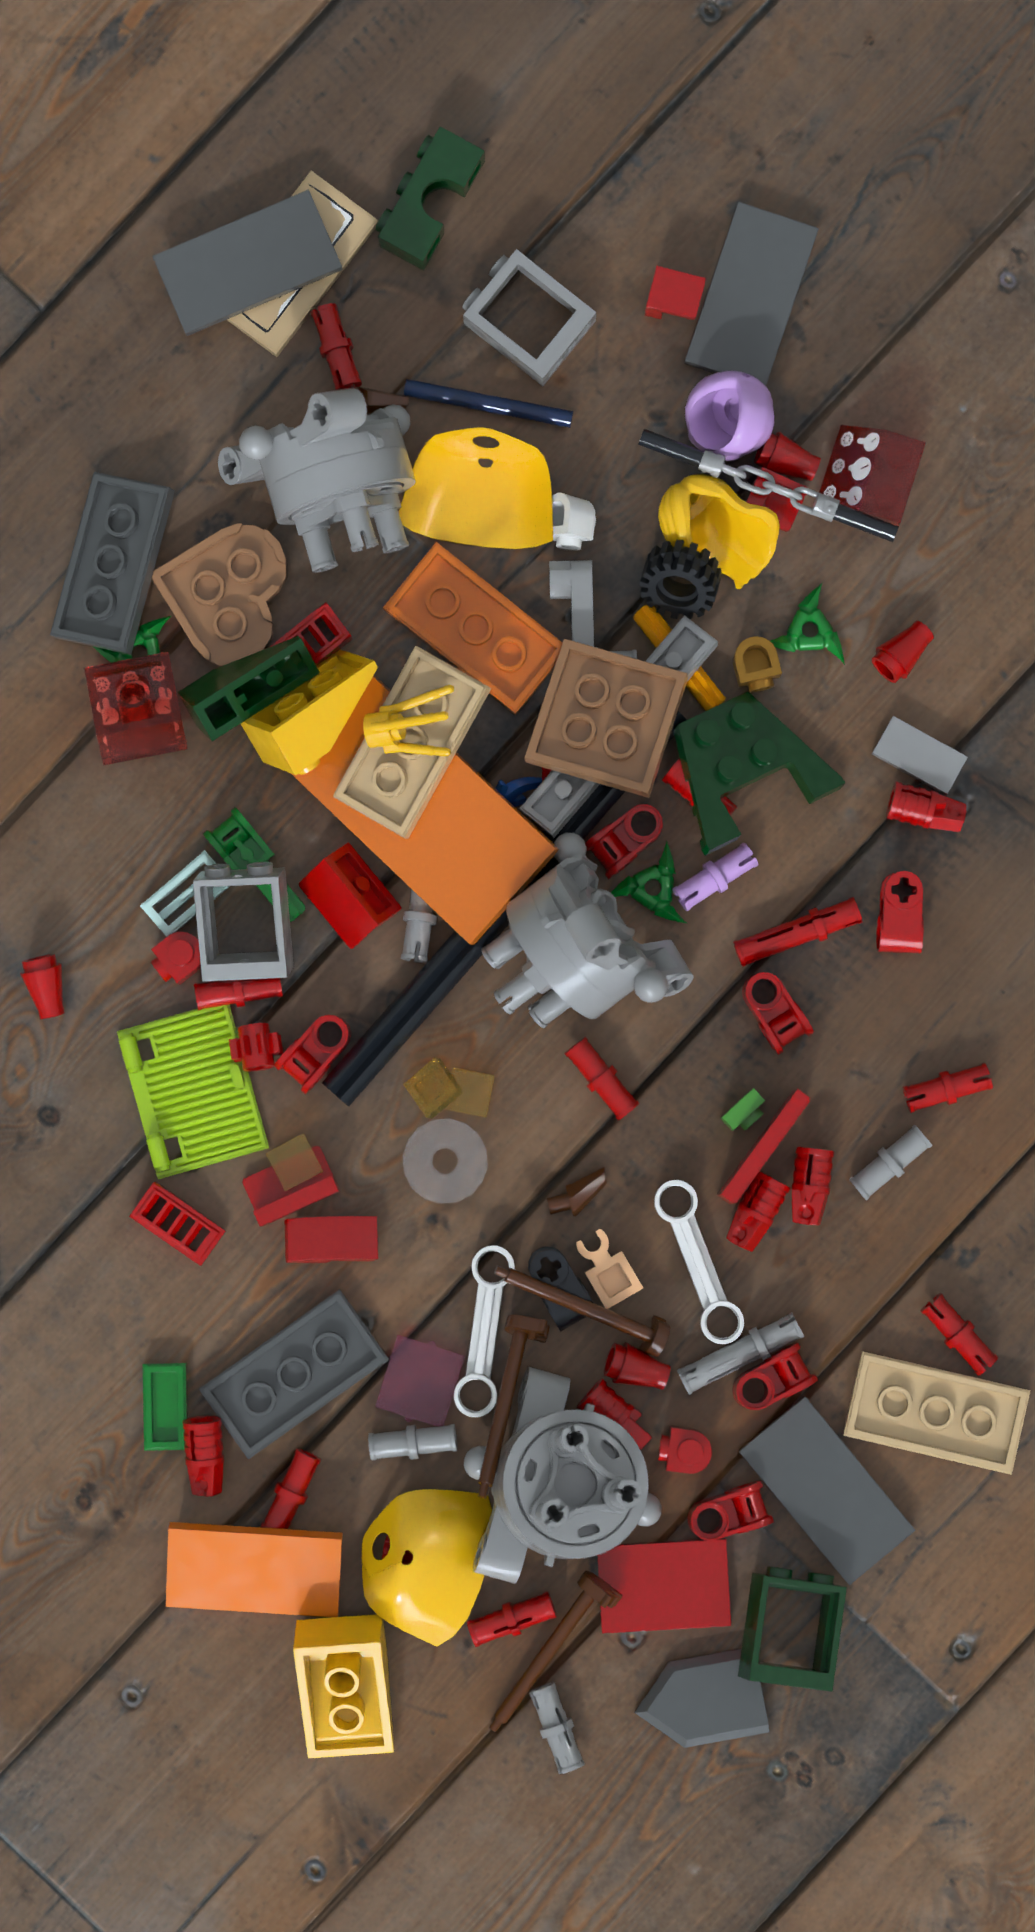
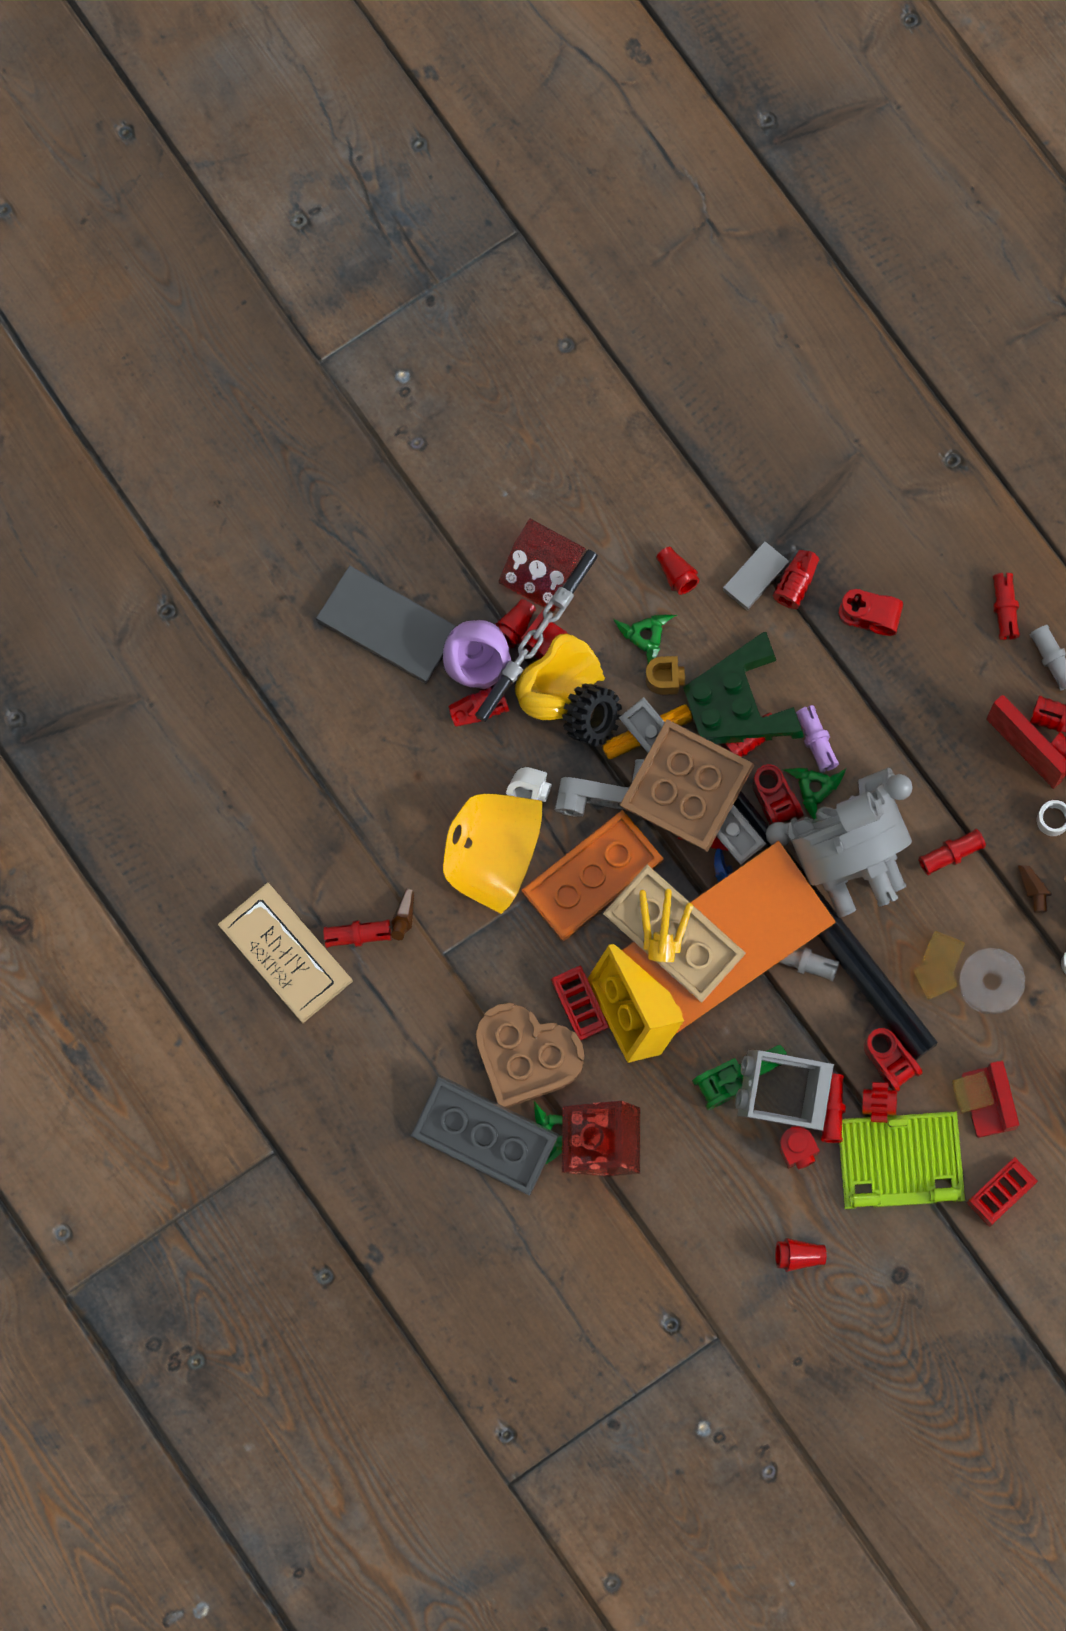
camera: 75 degrees left, 10 degrees down
(188, 915) = (764, 1158): light aqua tile -> none
(247, 262) = (278, 984): dark grey tile -> none
(247, 686) = (603, 1051): dark green slope -> none
(331, 472) = (457, 950): light grey piece -> none
(331, 1239) = (1036, 1076): red slope -> none
(349, 895) = (777, 1010): red panel -> none
(444, 164) = (279, 859): dark green arch -> none
(488, 403) = (424, 831): dark blue bar -> none
(561, 345) = (408, 787): light grey window -> none
(659, 419) = (464, 710): none -> red hinge
(674, 294) = (375, 677): red panel -> none
(744, 1112) = (996, 753): bright green plate -> none
(777, 1013) = (931, 714): red piece -> none
(798, 931) = (868, 674): red pin -> none

